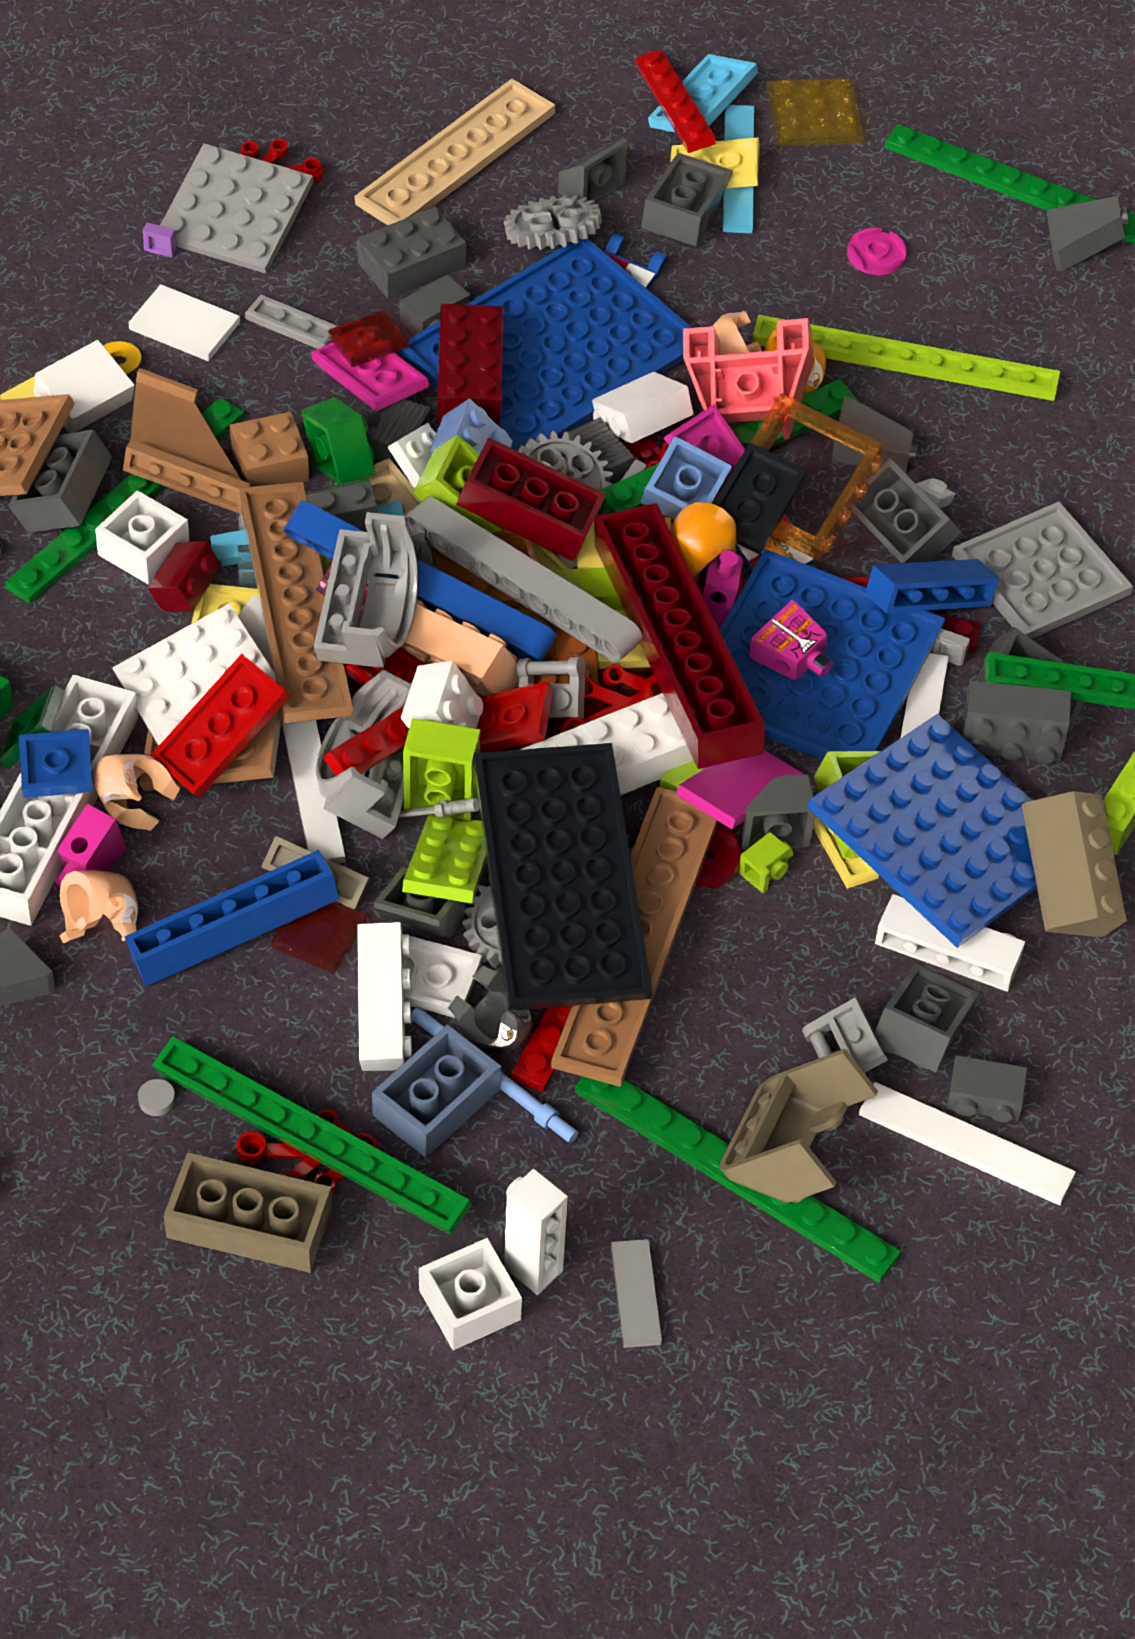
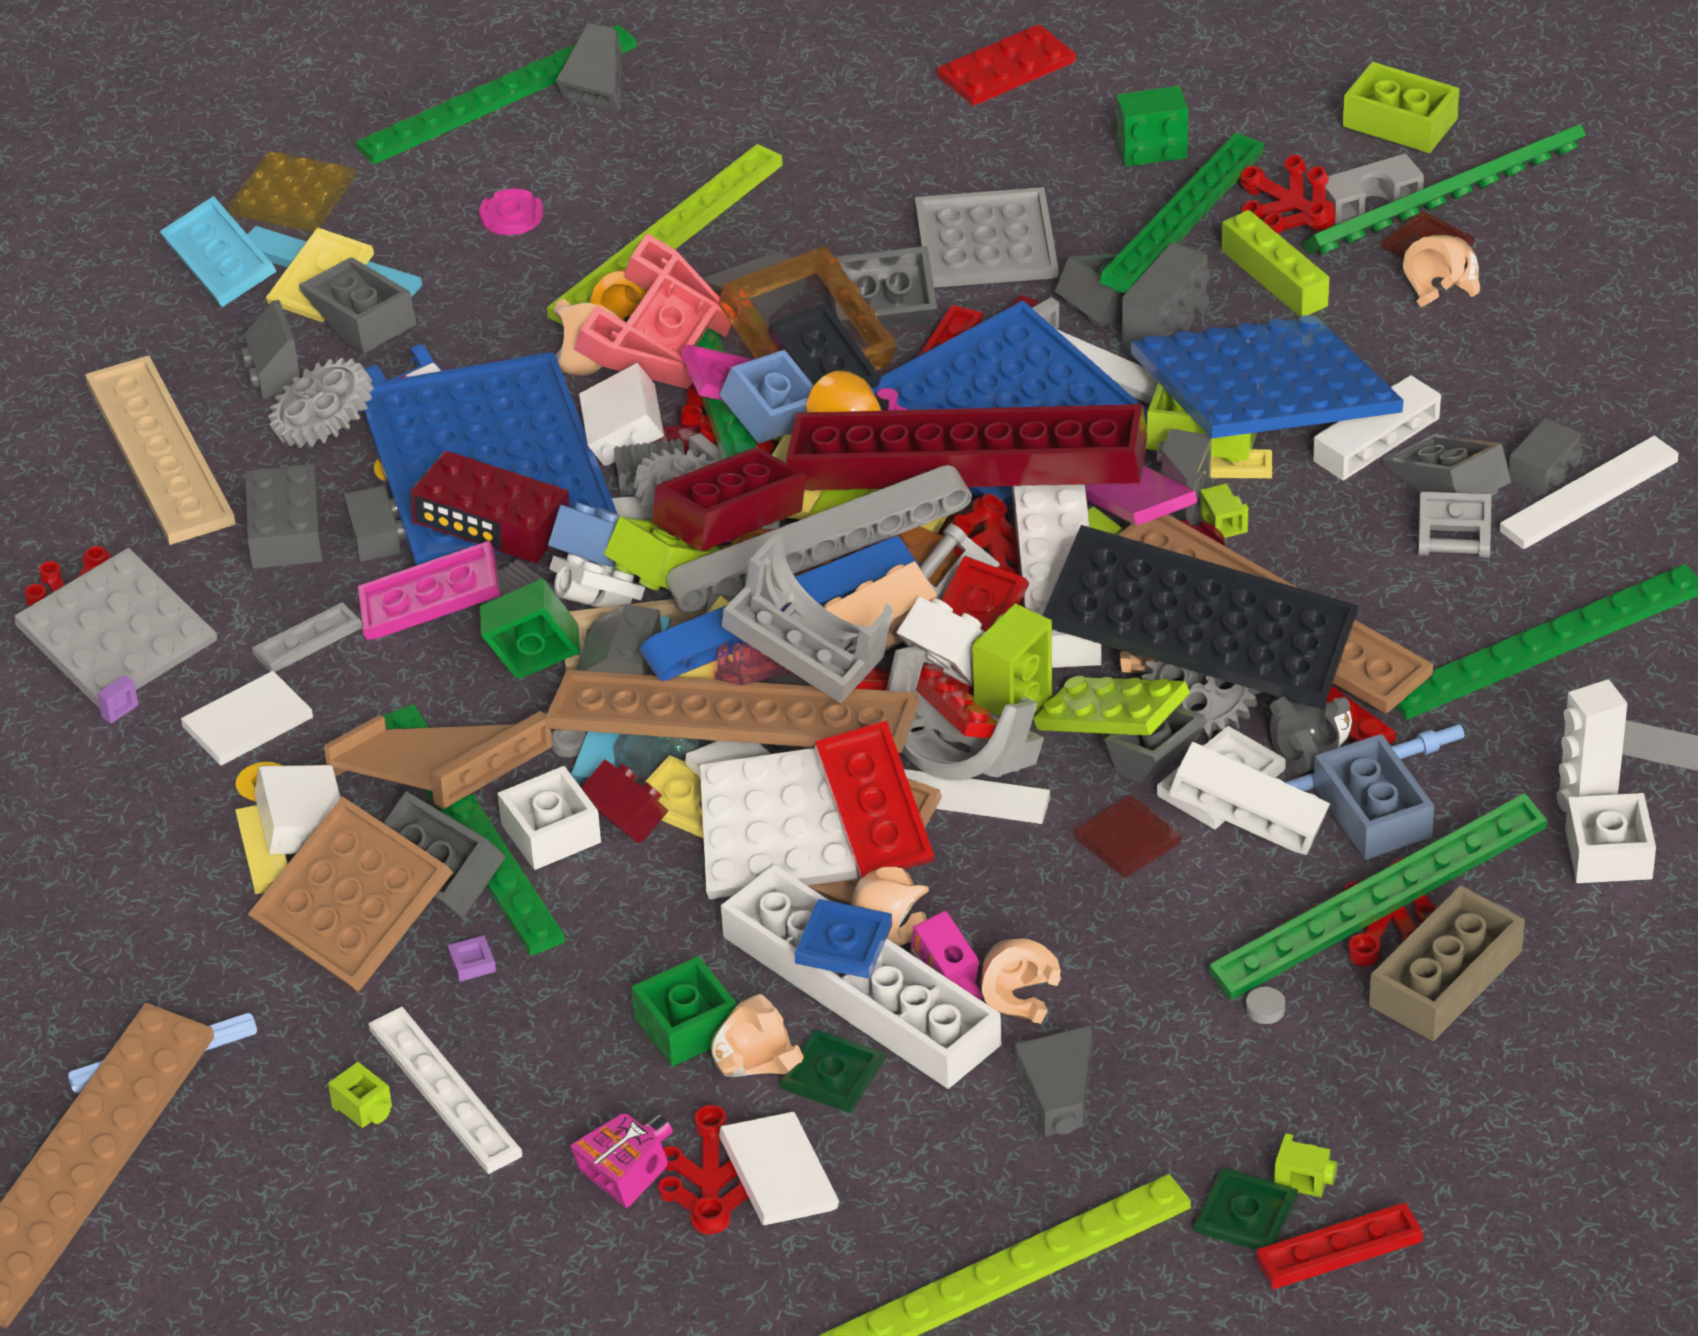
camera: 60 degrees left, 10 degrees down
(35, 719) = (763, 960): dark green tile -> none
(232, 918) = (1097, 877): blue brick -> none
(269, 450) = (490, 691): medium nougat brick -> none
(349, 884) = (1063, 812): dark tan plate -> none
(368, 338) = (388, 577): clear red tile -> none
(444, 808) = (1046, 693): light grey piece -> none
(675, 101) = (217, 268): red plate -> none
(782, 1120) = (1506, 567): dark tan windscreen -> none
(791, 644) = (996, 389): dark pink torso -> none
(931, 585) = (980, 294): blue brick -> none
(1074, 864) = (1349, 312): dark tan slope -> none

